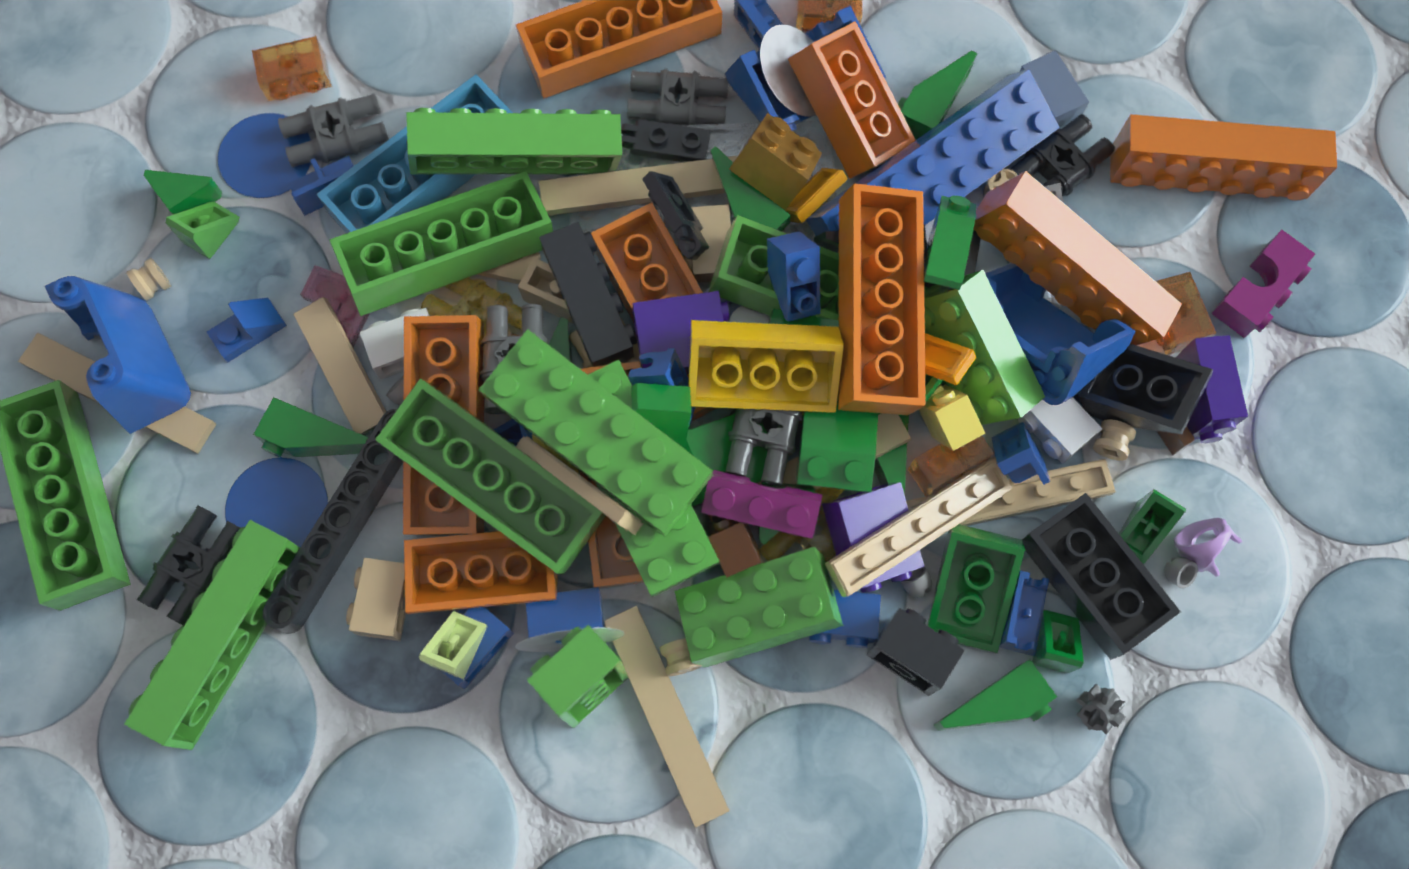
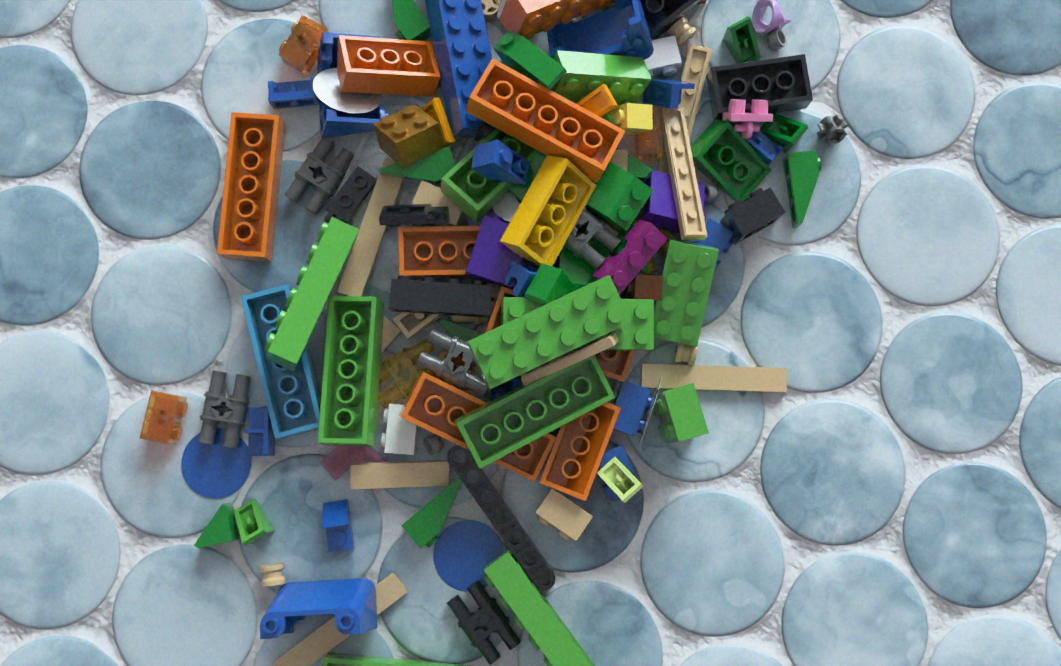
camera: 60 degrees left, 10 degrees up
(1042, 556) = (758, 113): none -> bright pink hips

